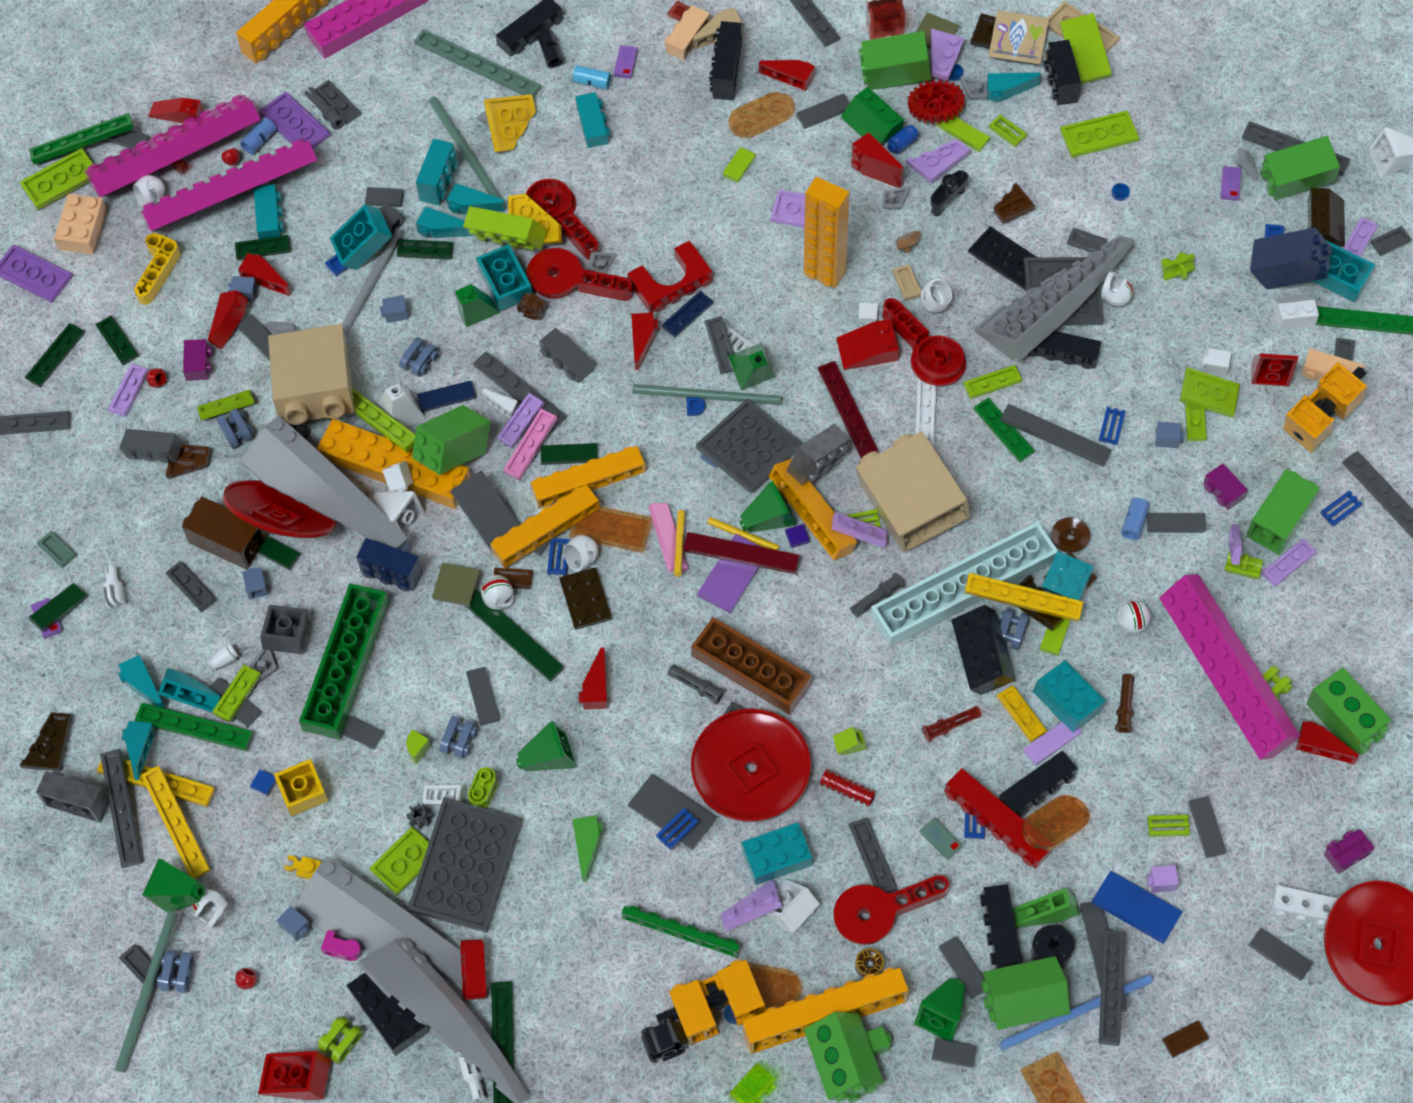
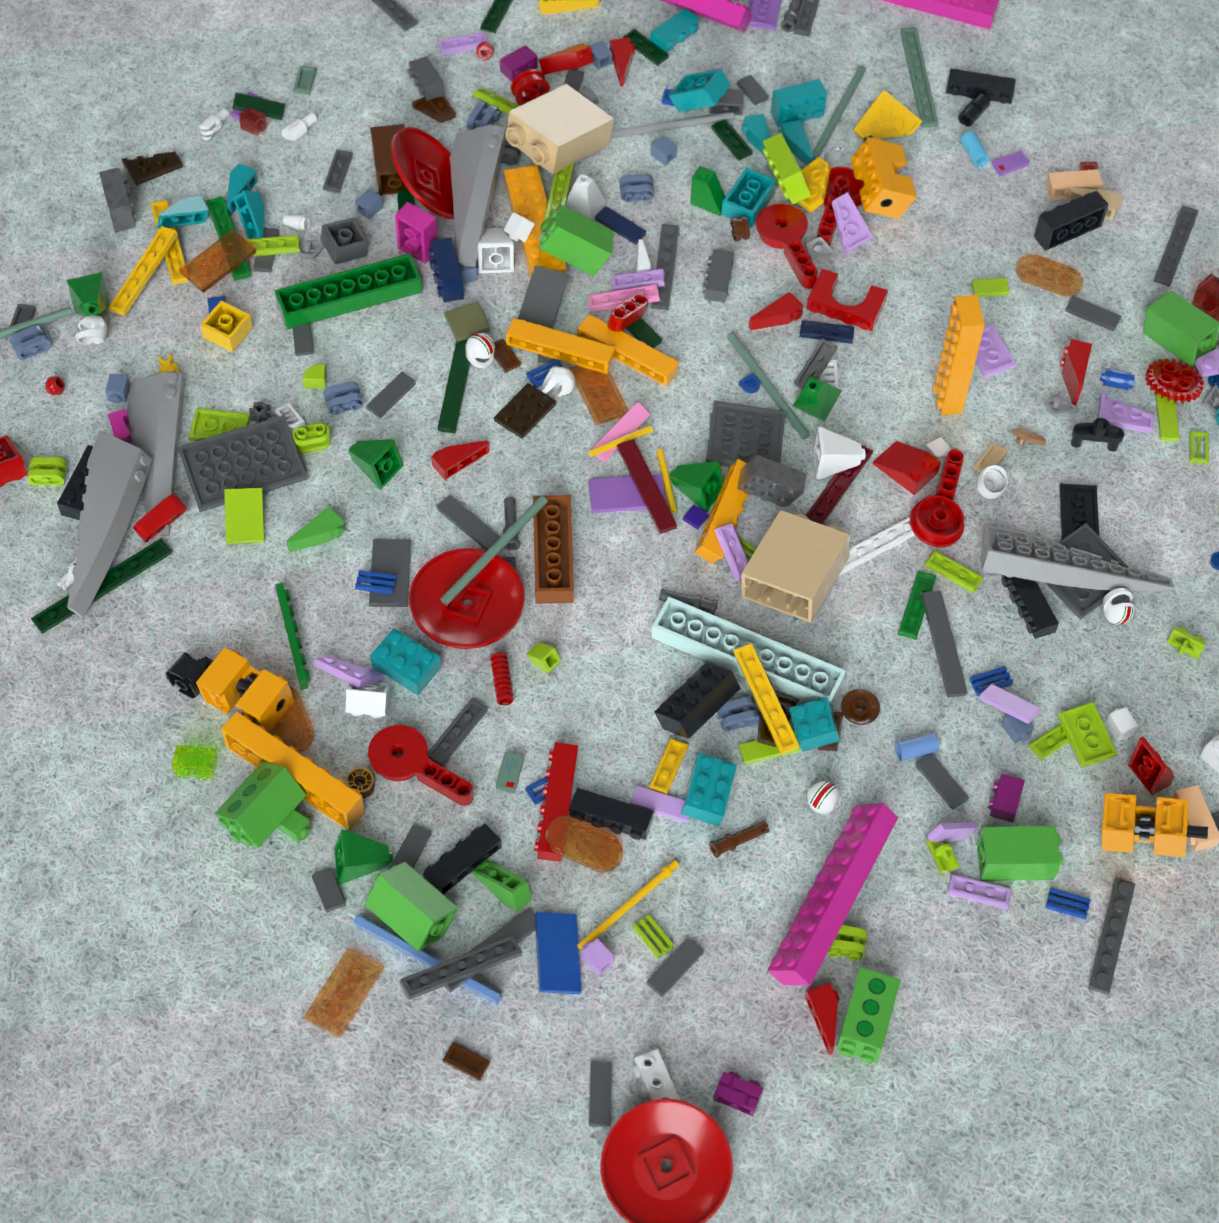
camera: 50 degrees right, 5 degrees down
(45, 660) = (213, 124): none -> white arm
(72, 623) = (253, 121): none -> clear red brick
(121, 808) = (130, 235): dark grey tile -> none
(219, 750) = (217, 261): none -> clear orange tile
(238, 368) = (527, 82): none -> red wheel
(332, 562) = (415, 231): none -> dark pink brick
(523, 896) = (244, 515): none -> lime tile
(555, 451) = (627, 313): none -> red beam
(559, 158) = (883, 190): none -> light orange piece
(592, 119) = (937, 171): teal brick -> none
(597, 220) = (850, 223): none -> lavender wing
(669, 716) = (467, 522): none -> dark grey tile
(724, 712) = (493, 550): none -> sand green piece
(792, 72) = (1105, 269): red slope -> none
(820, 391) = (835, 453): none -> white slope
(872, 115) = (1116, 346): green slope -> none
(943, 728) = (608, 714): clear red pin -> none
(1013, 205) = (1131, 490): reddish brown wing -> none
(1056, 937) = (479, 906): black brick -> none
(1085, 240) = (1147, 560): dark grey tile -> none
(1118, 779) = (666, 871): none -> yellow bar
(1149, 426) = (1009, 703): none -> lavender tile

